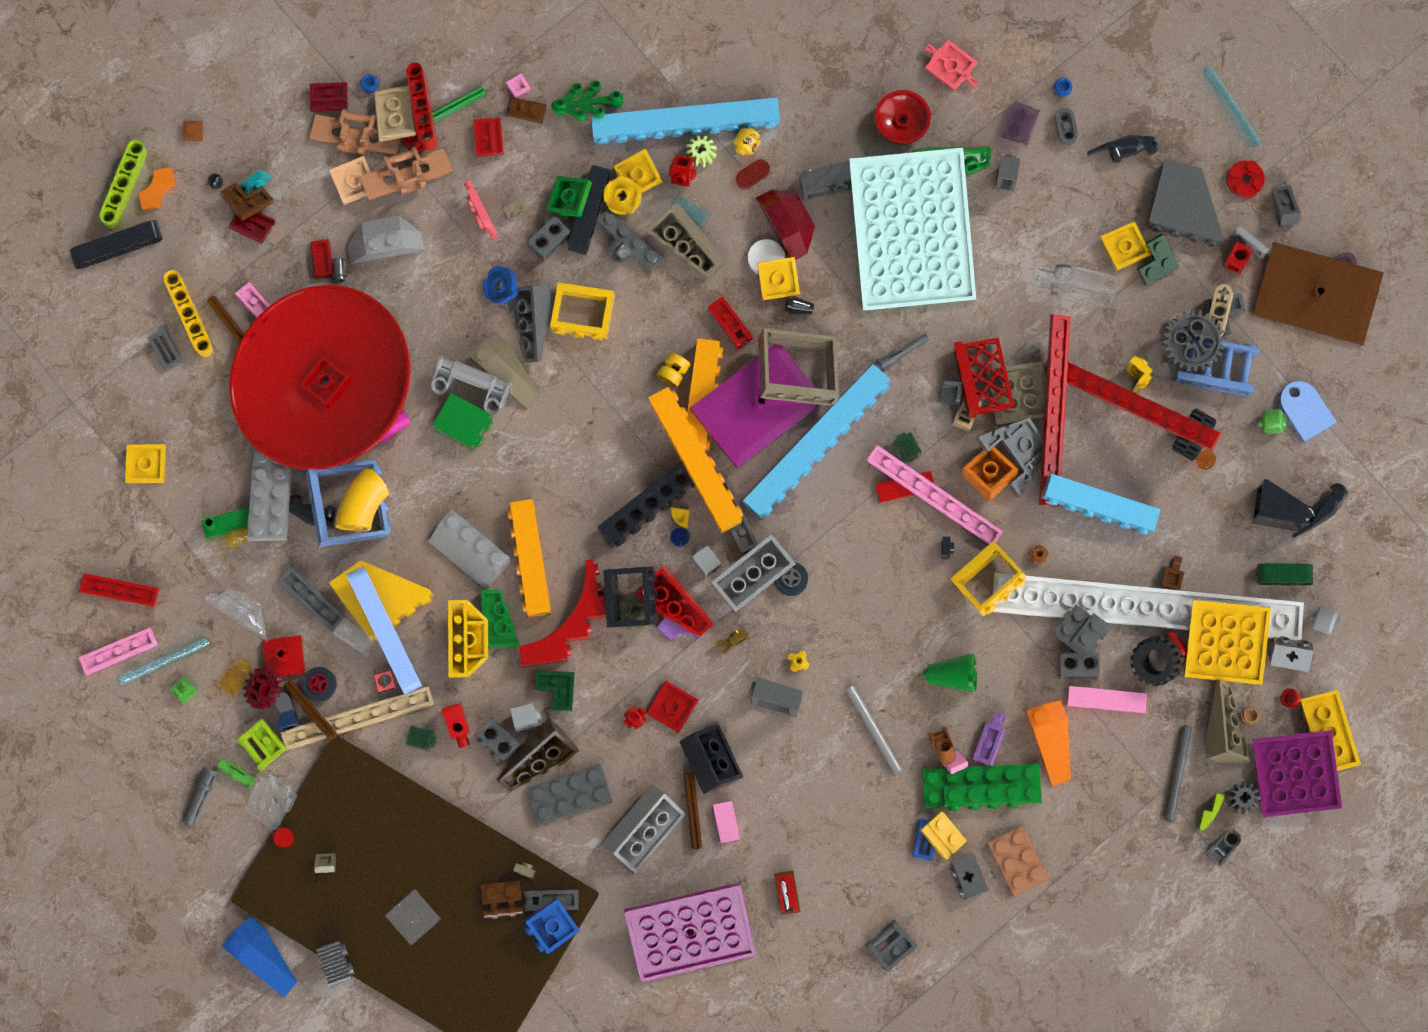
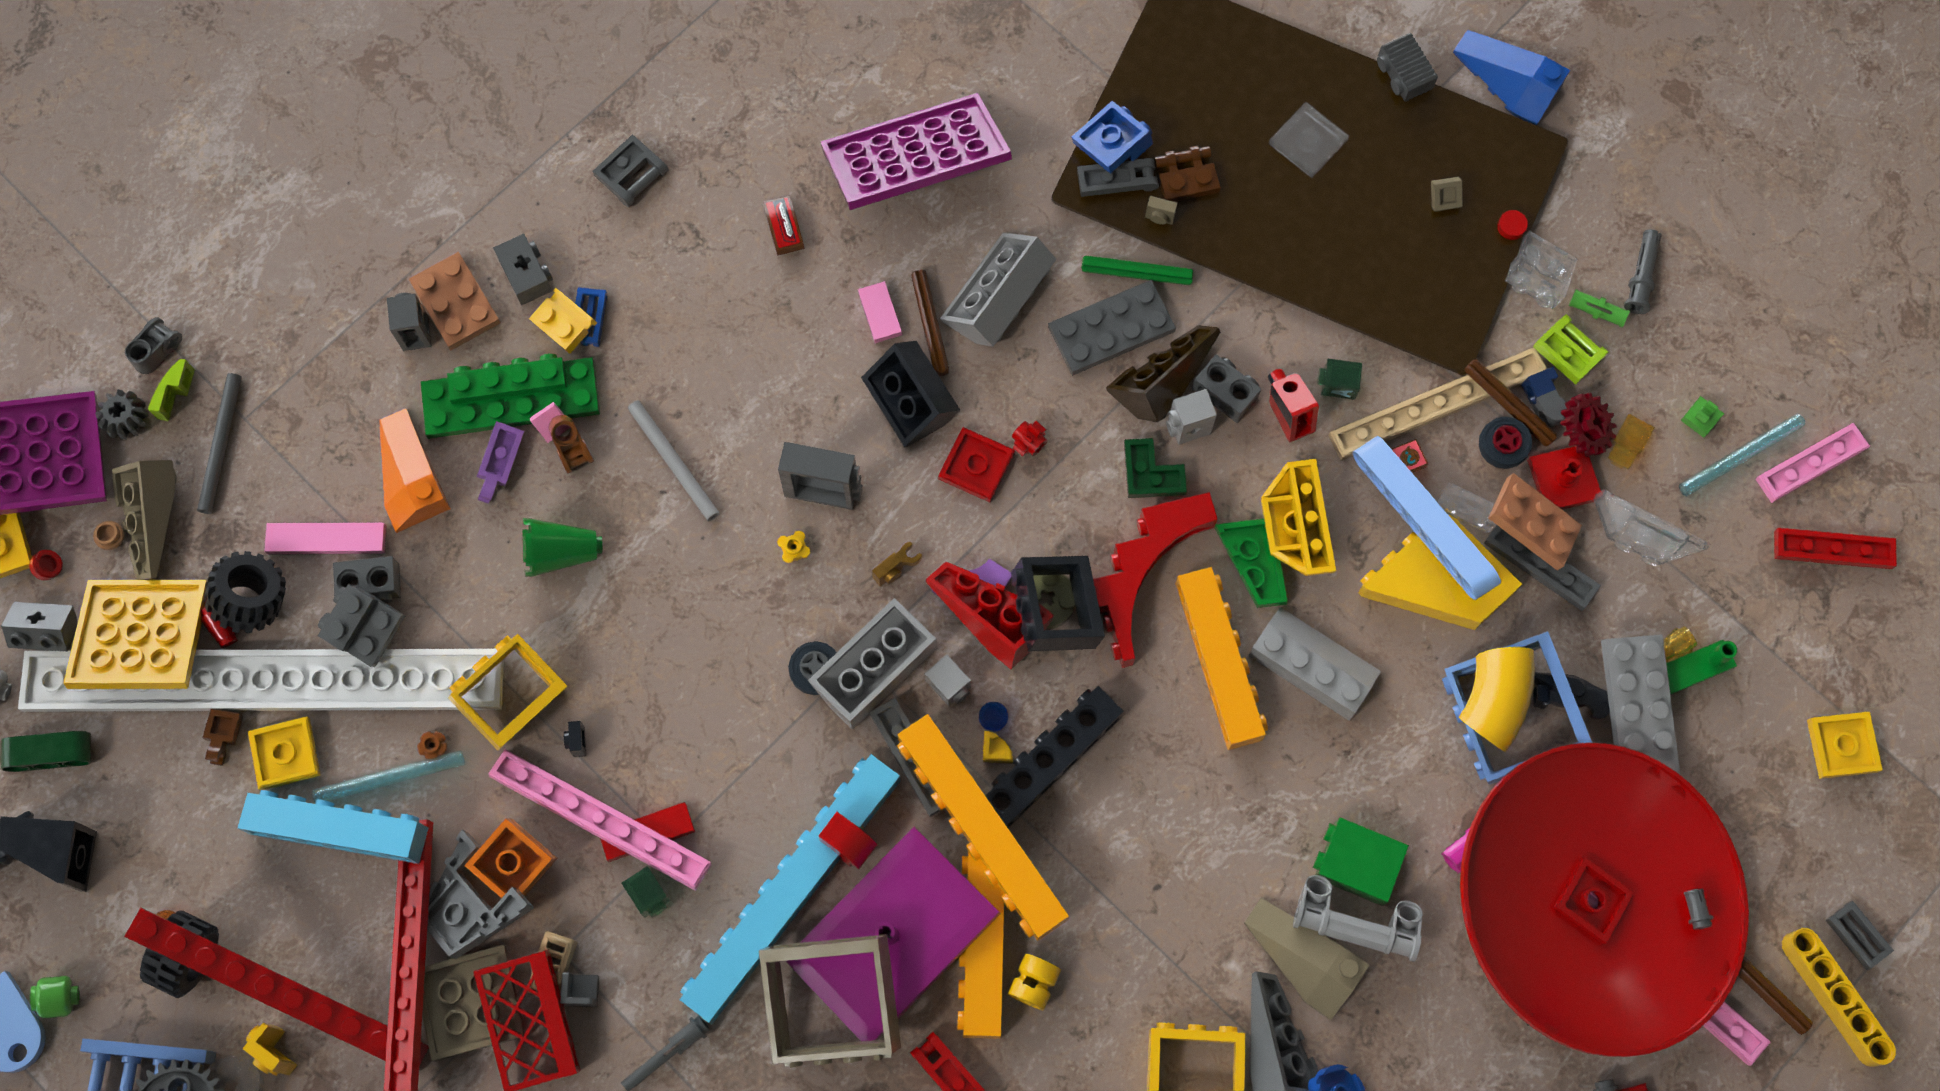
camera: 170 degrees right, 5 degrees down
(263, 368) = (1698, 909): none -> dark grey pin
(312, 623) = (1535, 521): none -> nougat plate
(546, 834) = (1137, 270): none -> green axle
(779, 460) = (847, 841): none -> red brick
(1047, 841) = (408, 321): none -> dark grey brick
(1067, 537) = (389, 777): none -> clear light blue piece
(1133, 558) = (284, 753): none -> yellow plate

